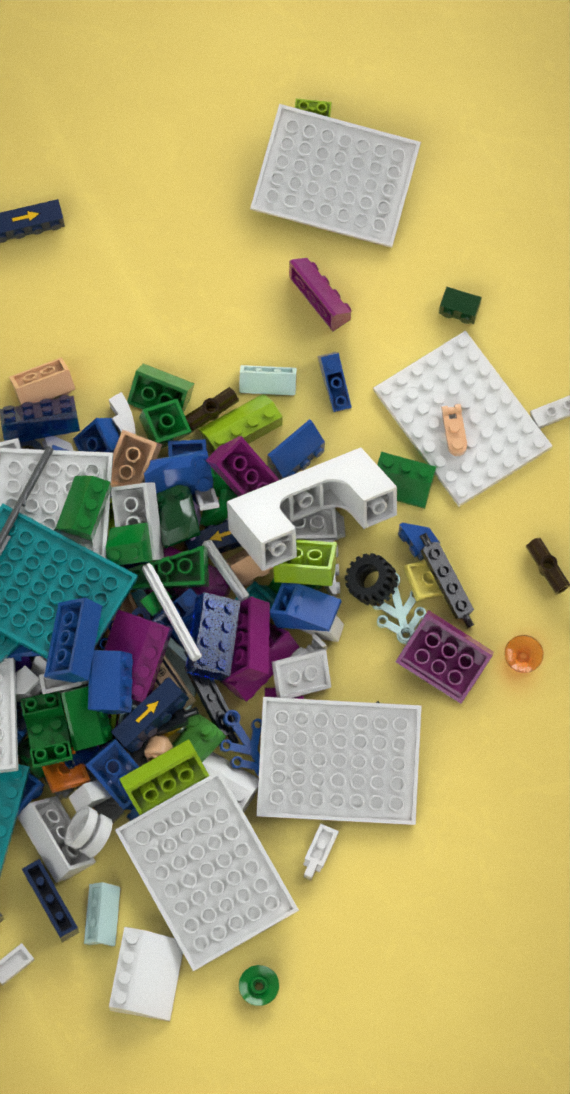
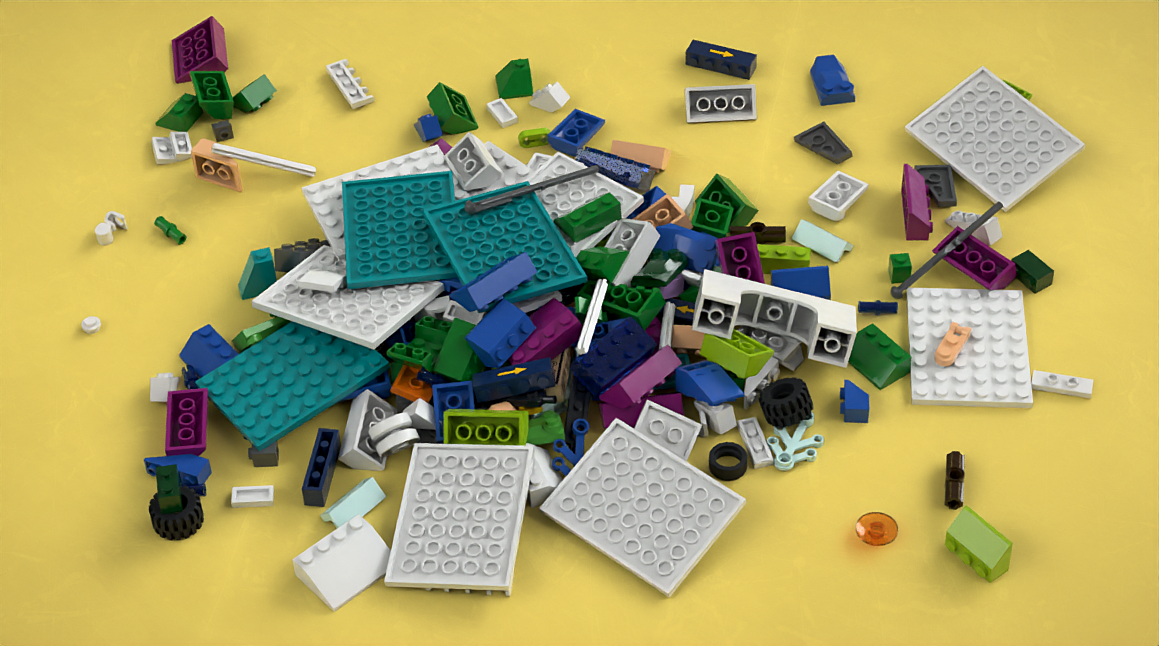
camera: 40 degrees right, 25 degrees down
(65, 275) = (720, 103): none -> white slope
(141, 185) = (831, 81): none -> blue slope
(190, 265) = (824, 142): none -> dark grey wing
(247, 321) = (836, 195): none -> white slope
(253, 976) = (427, 619): green dish -> none
(319, 250) = (940, 183): none -> dark grey wing
(319, 850) = (568, 565): white hinge -> none
(334, 381) = (877, 265): blue slope -> none
(355, 371) = (899, 267): none -> green brick
(365, 425) = (877, 307): none -> clear blue pin
(369, 630) = (755, 443): none -> white tile
(369, 651) = (724, 472): none -> black tyre
(370, 398) = (896, 292): none -> dark grey bar
(381, 283) = (986, 233): none -> white slope
(411, 326) = (979, 261): none -> magenta slope
(422, 581) = (838, 434): light yellow tile -> none
(444, 656) = (802, 490): magenta slope -> none
(447, 580) = (852, 439): plate -> none

